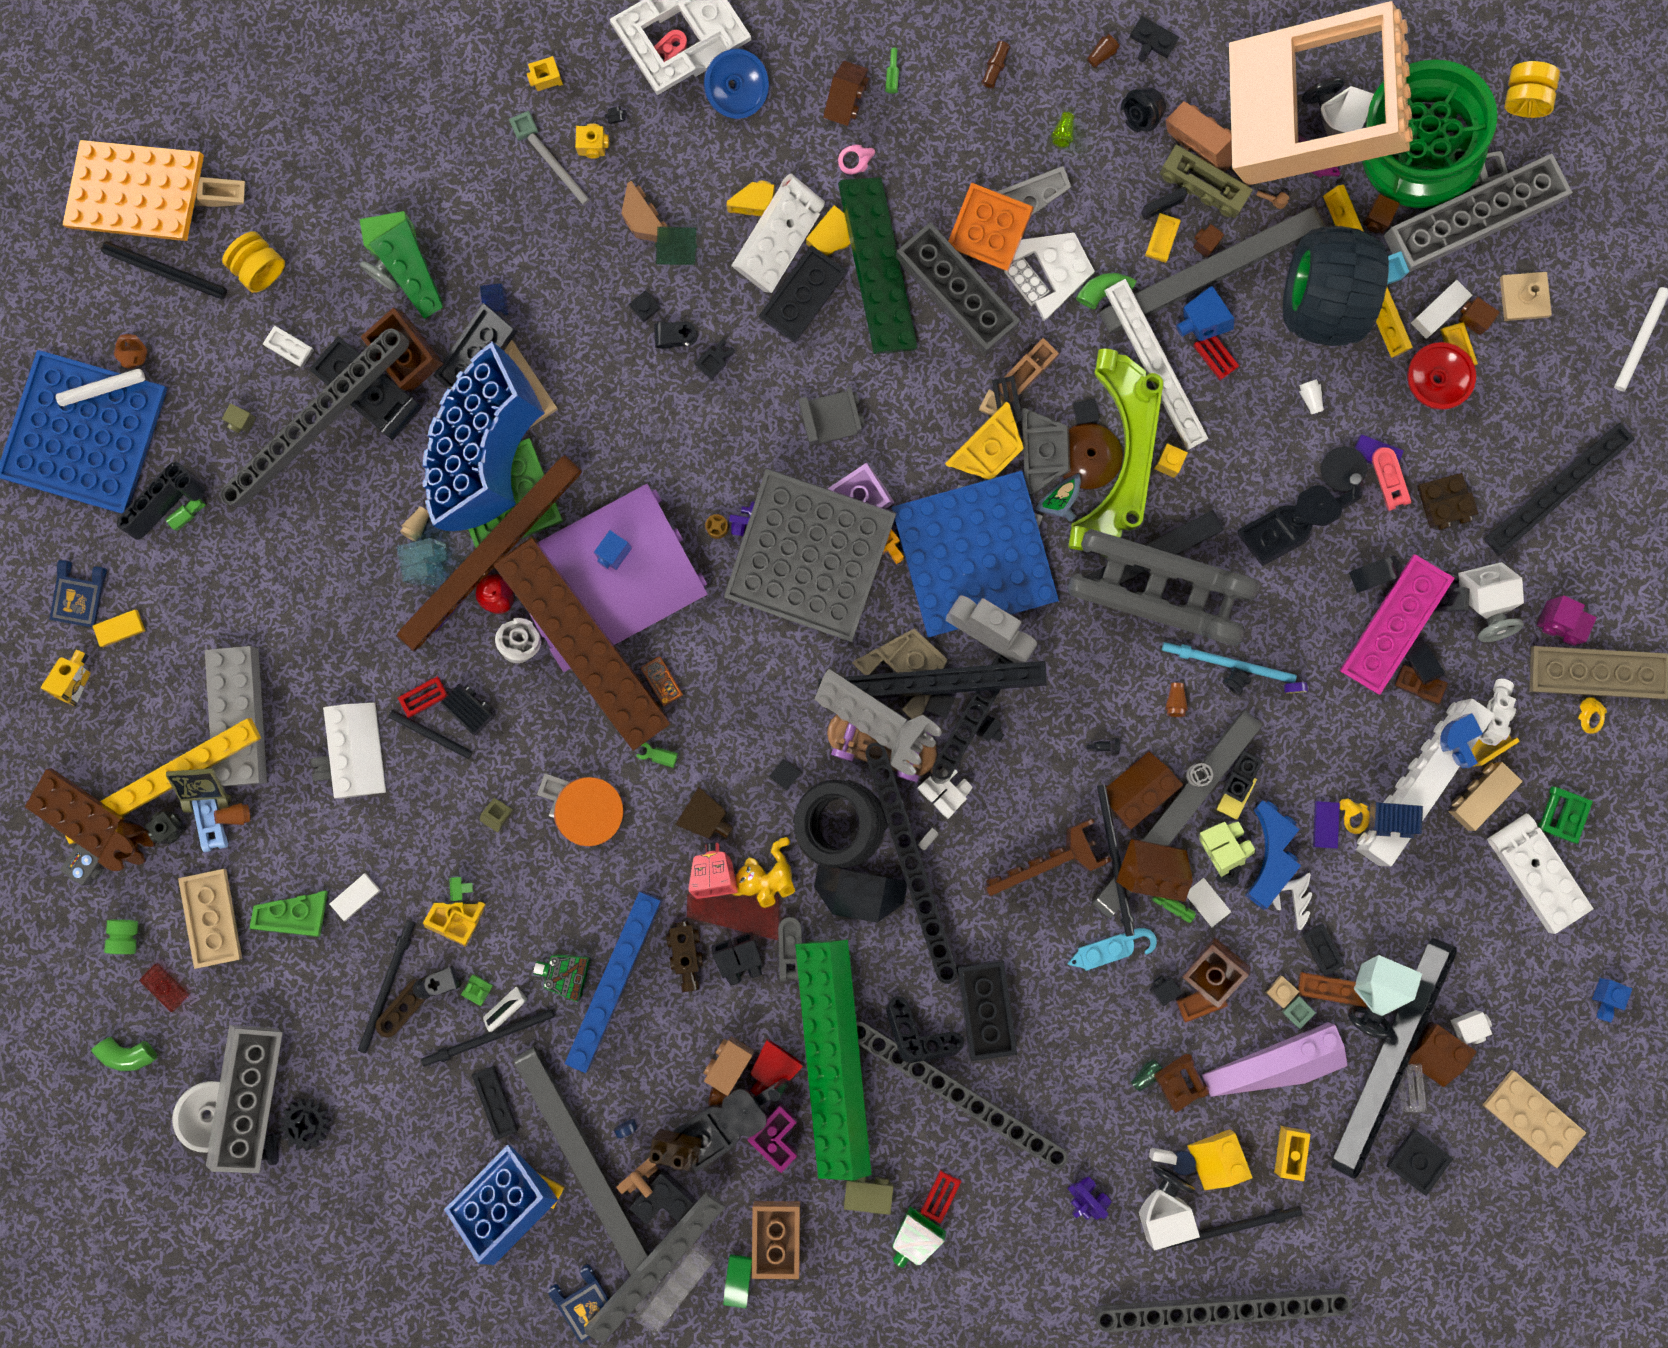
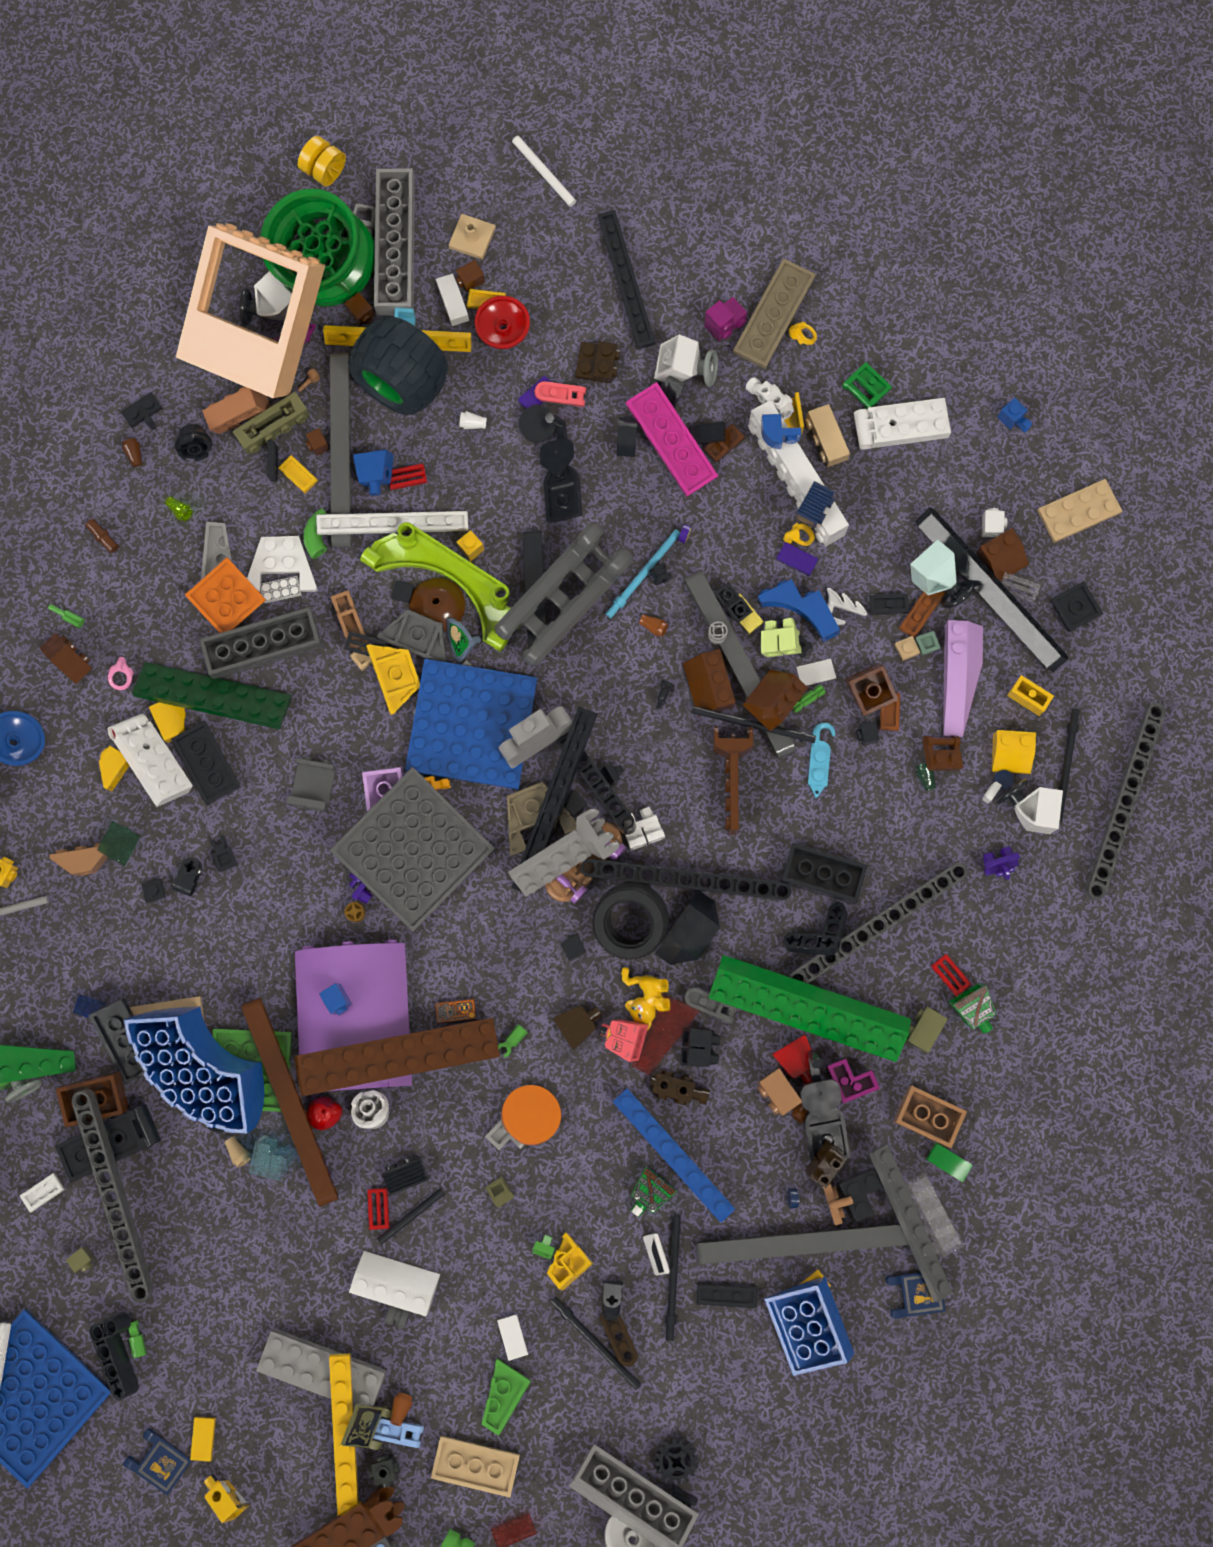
camera: 65 degrees left, 5 degrees down
(477, 990) = (631, 1269): bright green tile -> none
(927, 839) = (673, 859): light grey tile -> none

